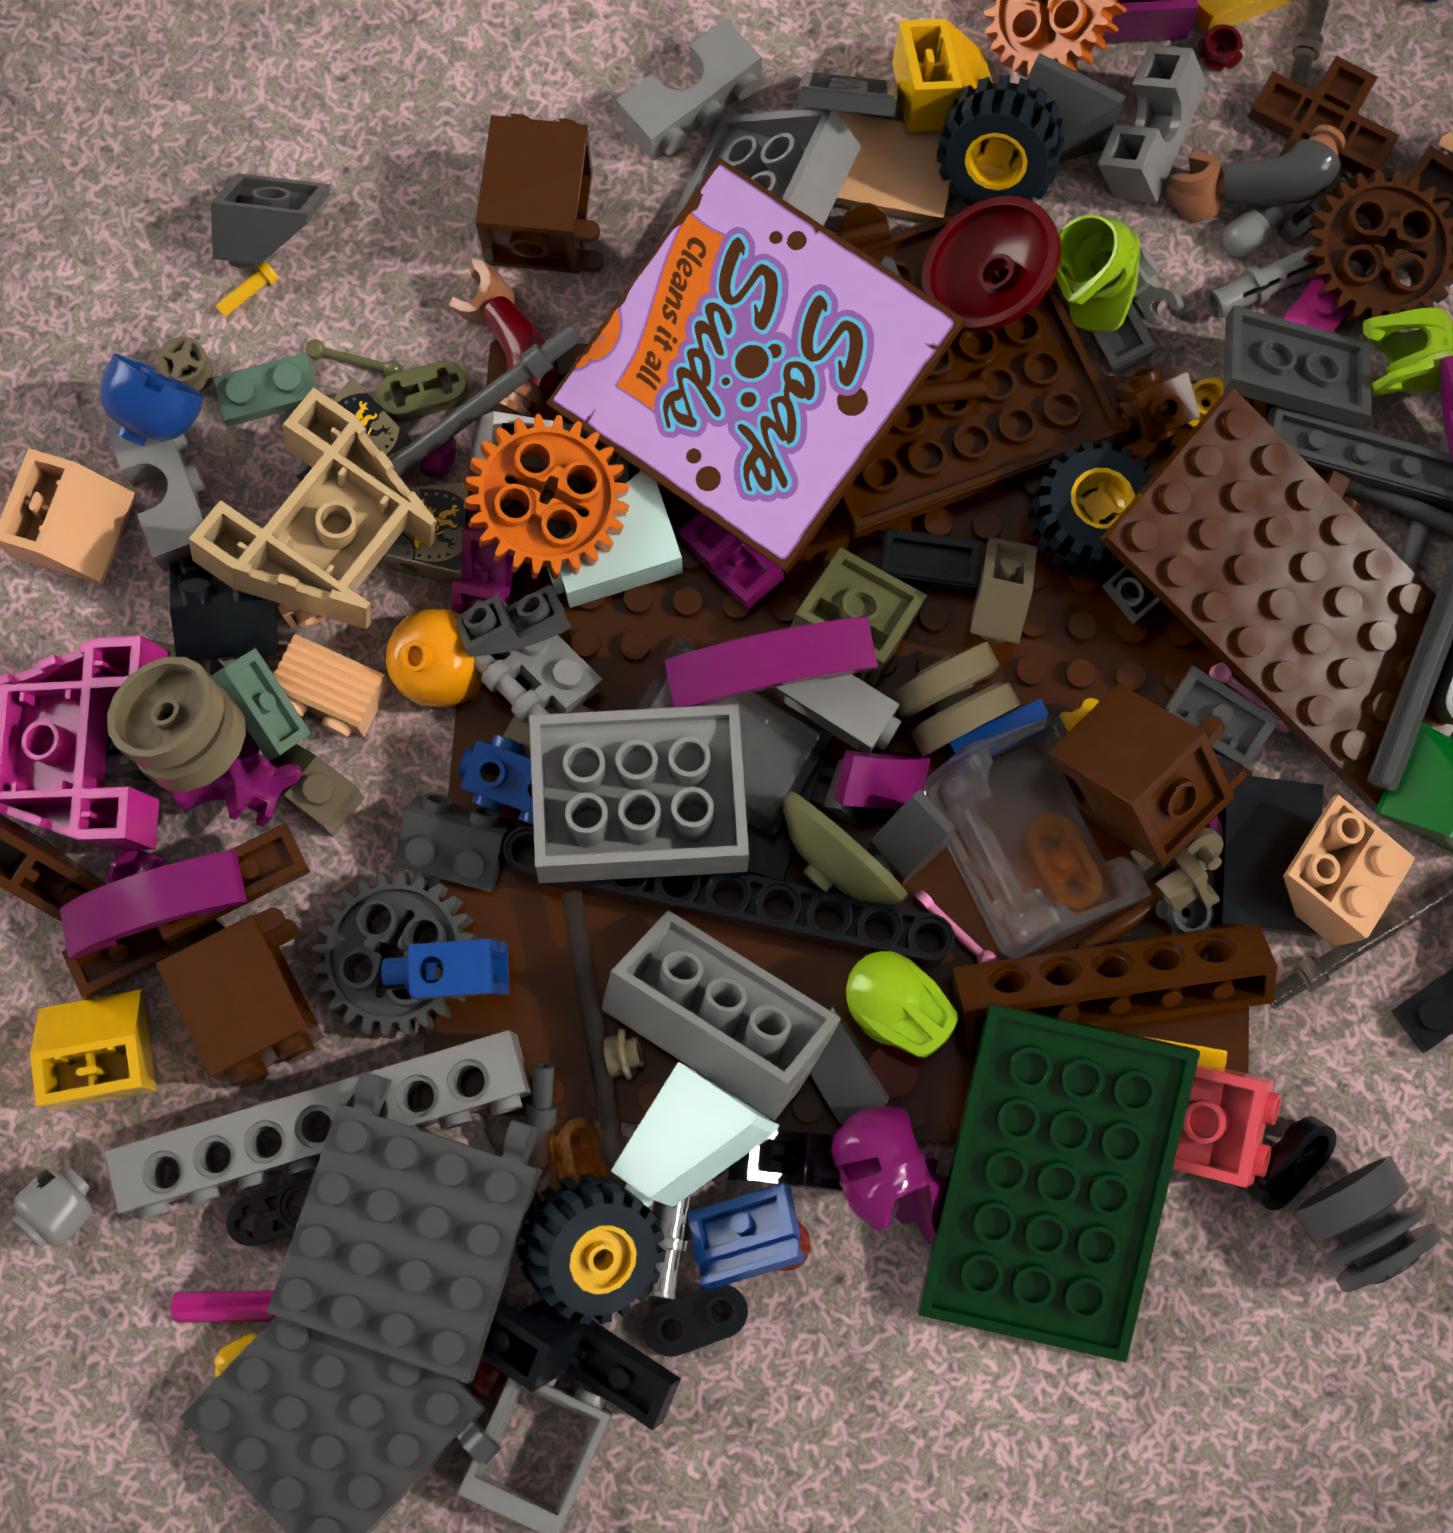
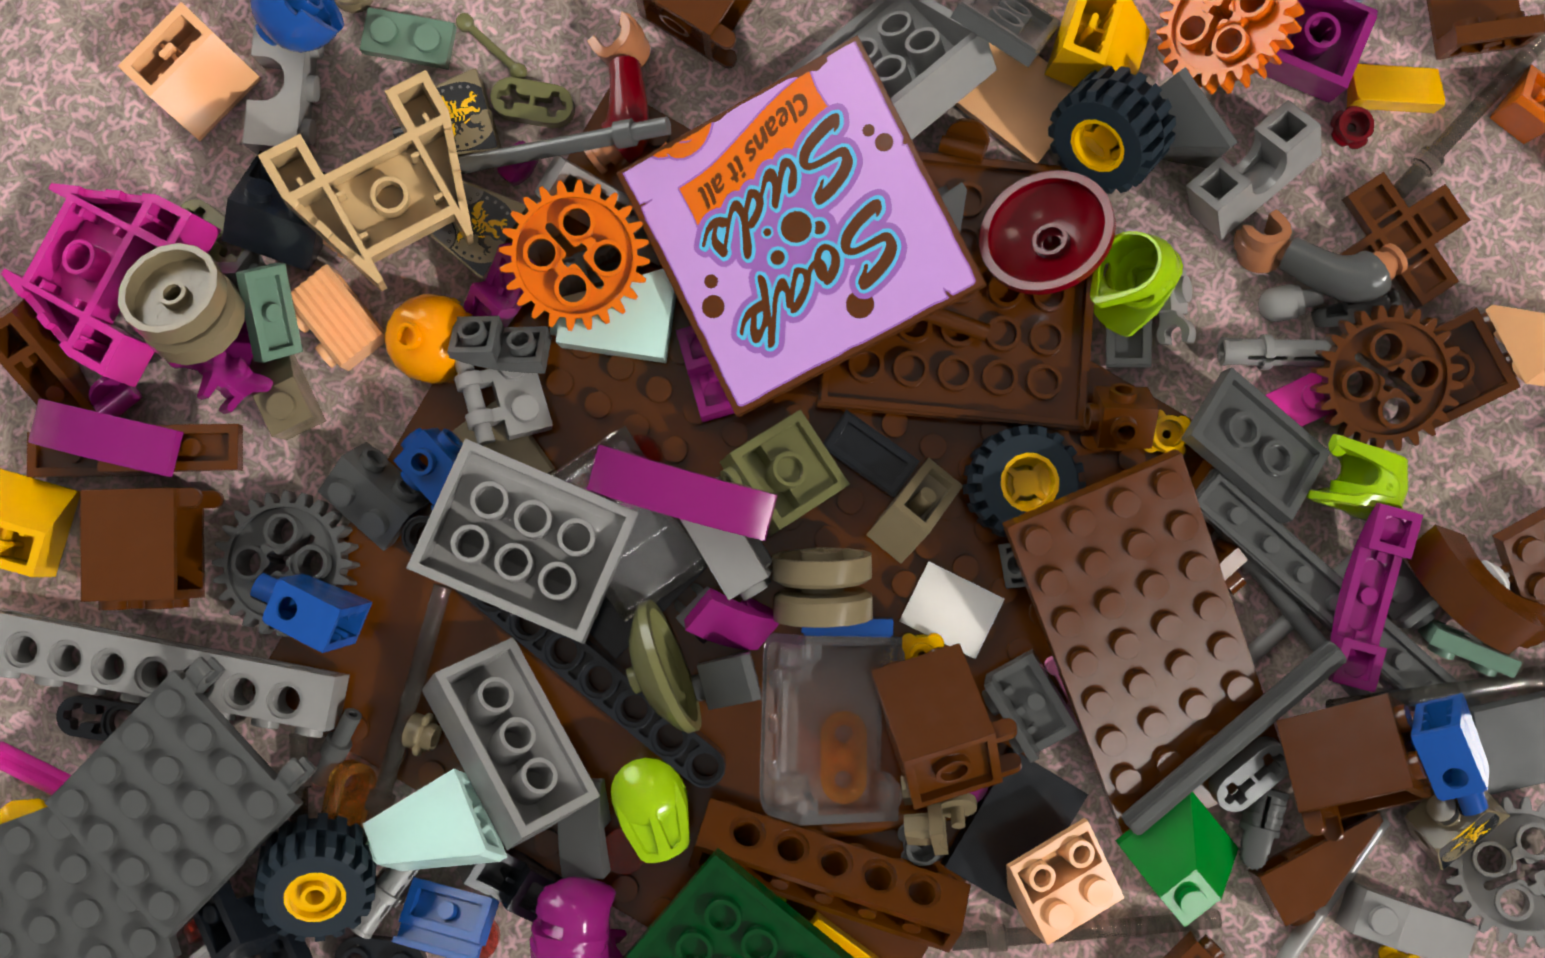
camera: 25 degrees right, 10 degrees up
(928, 904) = (744, 798): bright pink hinge -> none
(1087, 668) = (952, 609): none -> white sticker

